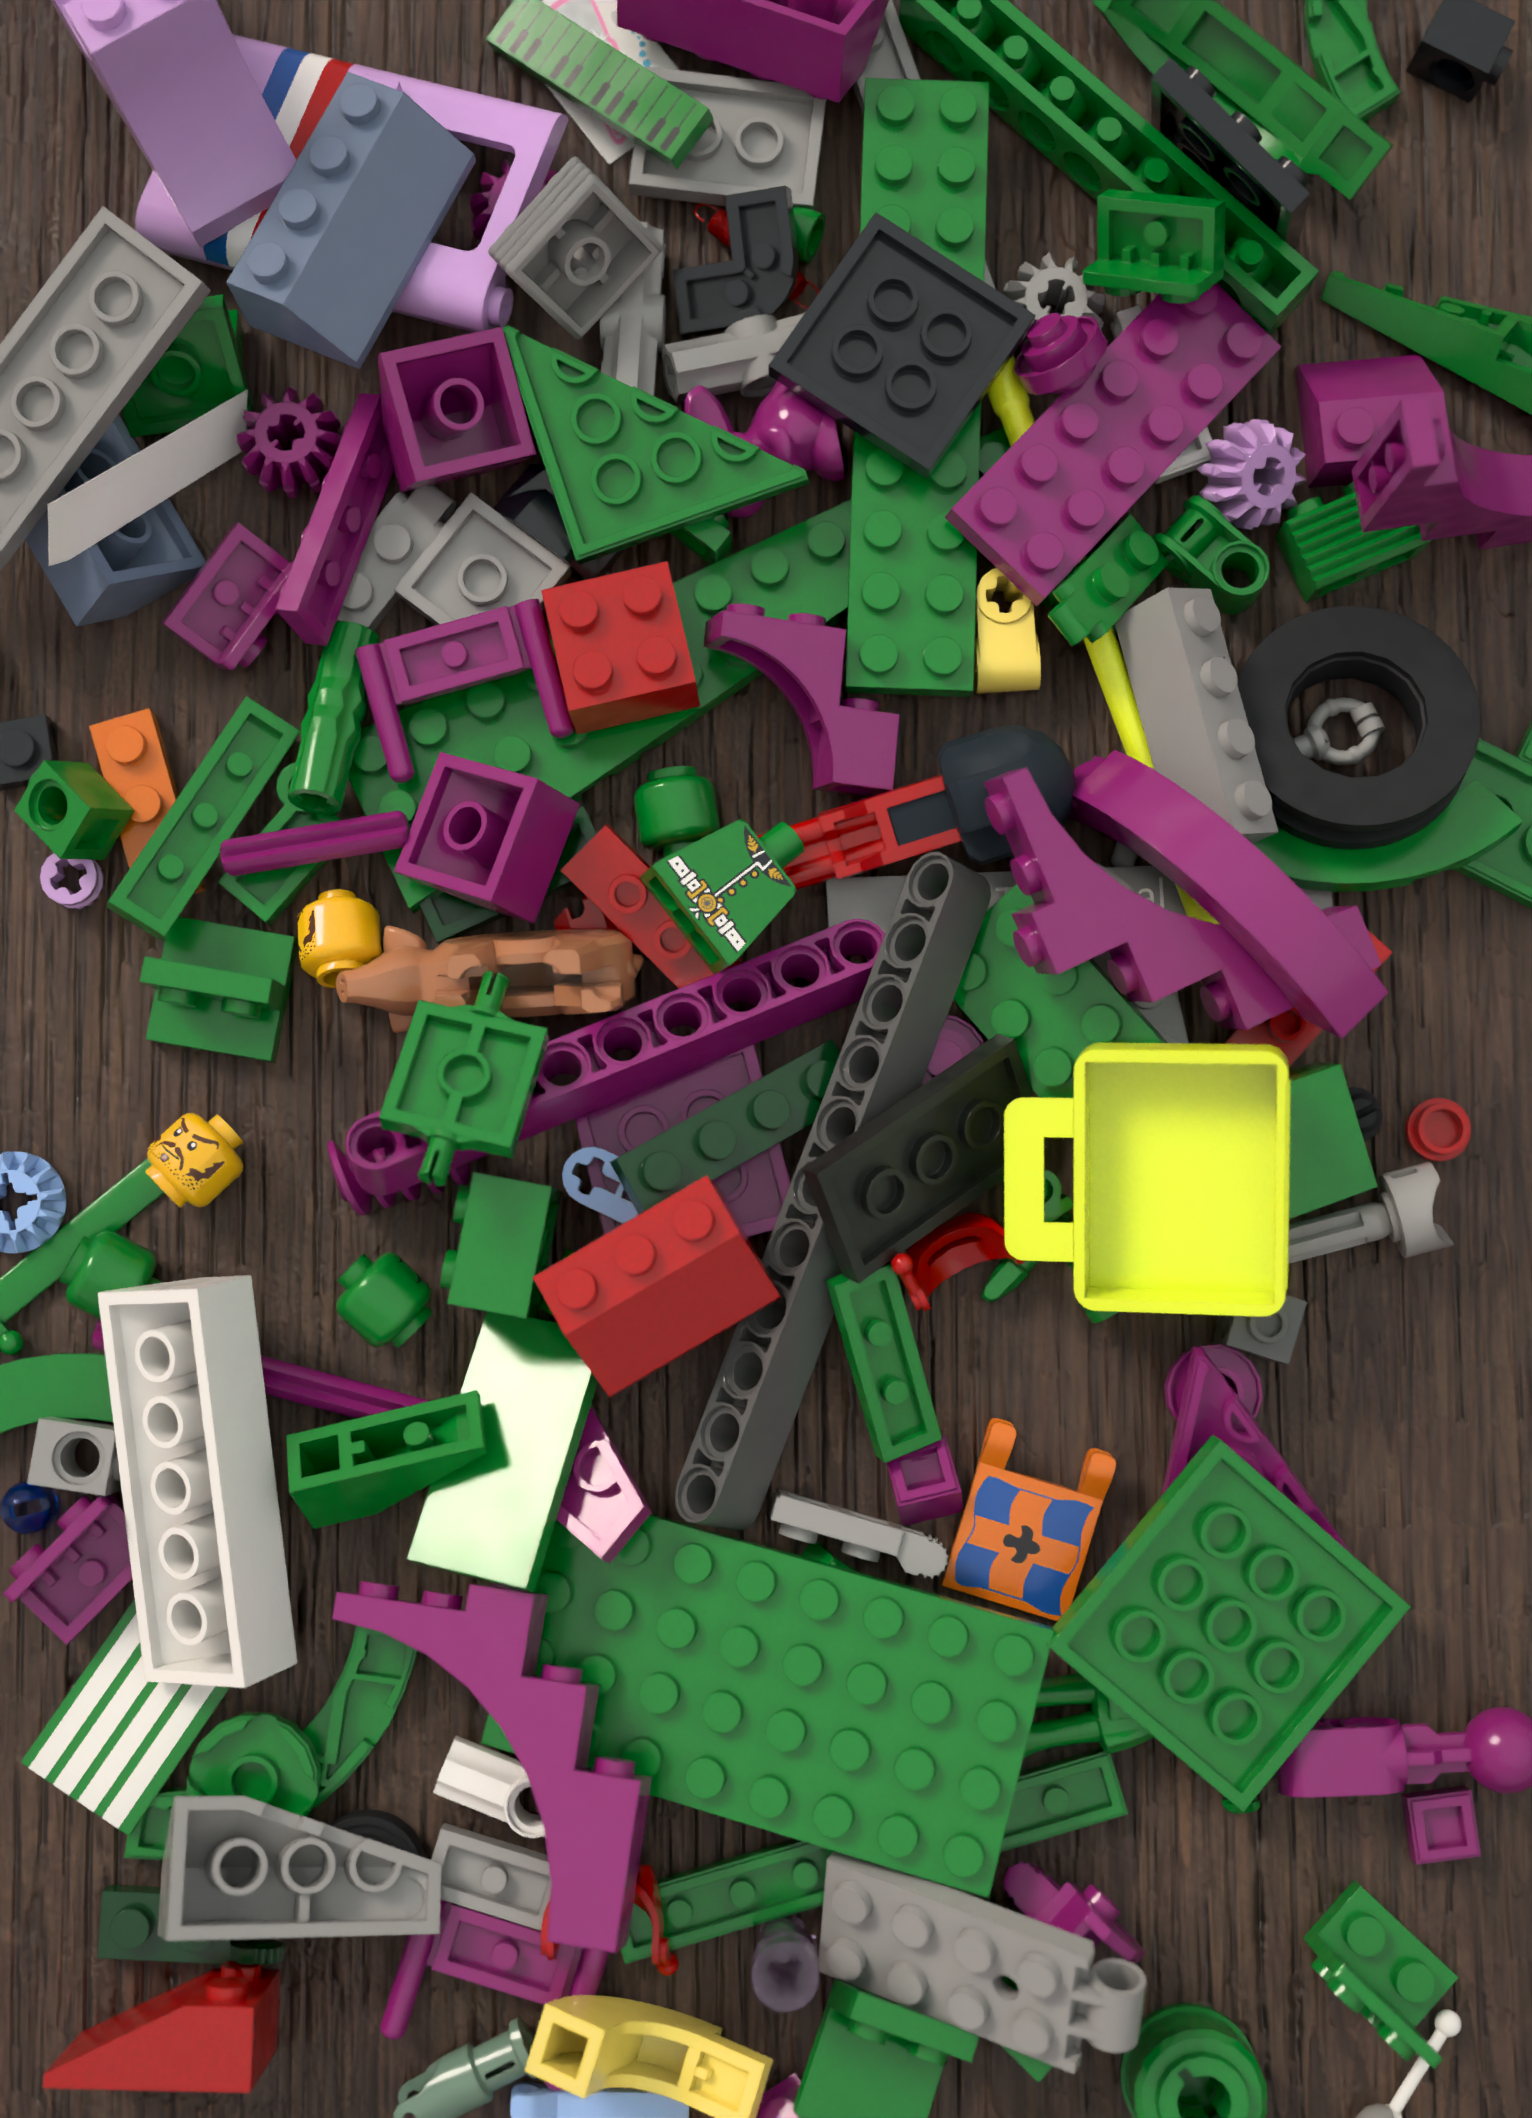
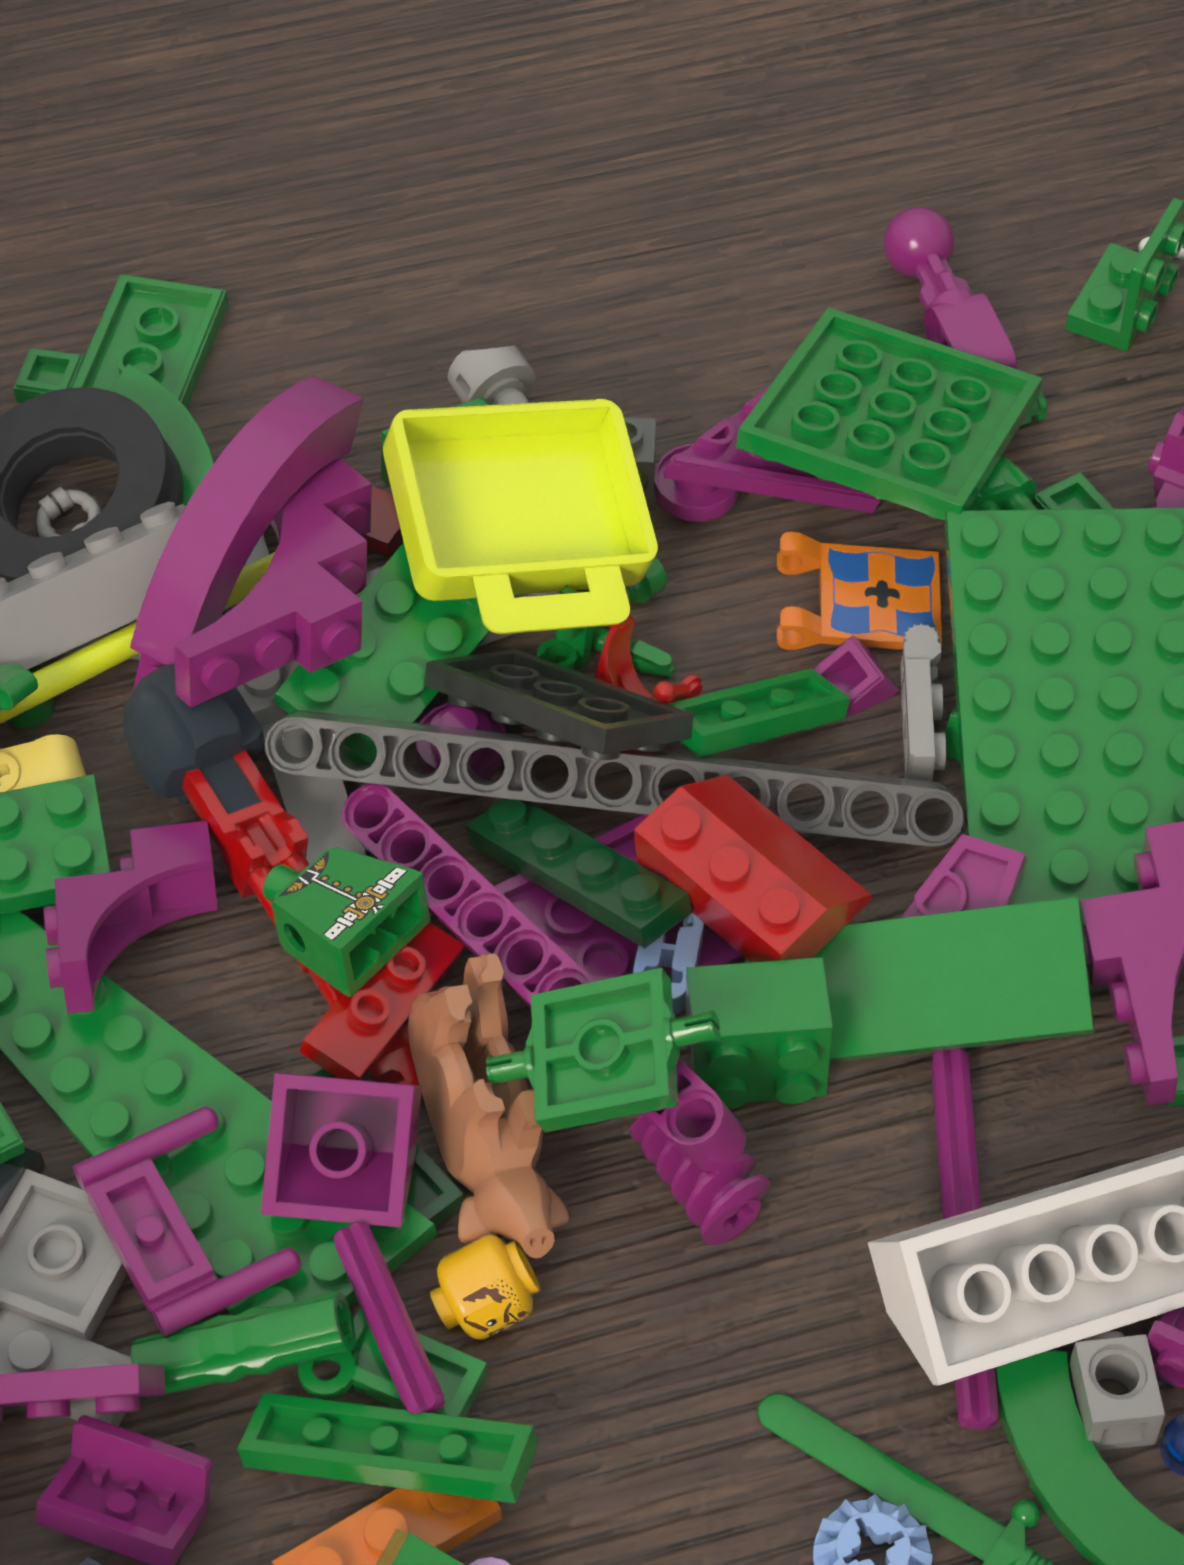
camera: 100 degrees left, 30 degrees down
(106, 1265) = (917, 1421): green head -> none
(195, 1159) = (765, 1360): yellow head -> none
(220, 989) = (578, 1394): green bracket -> none
(382, 1457) = (1002, 1085): green slope -> none
(383, 1299) = (849, 1142): green head -> none
(621, 648) = (111, 1066): red brick -> none
(675, 809) = (270, 1013): green head -> none
(1438, 1129) = (415, 385): red plate -> none
(1441, 1825) = (999, 278): magenta tile -> none

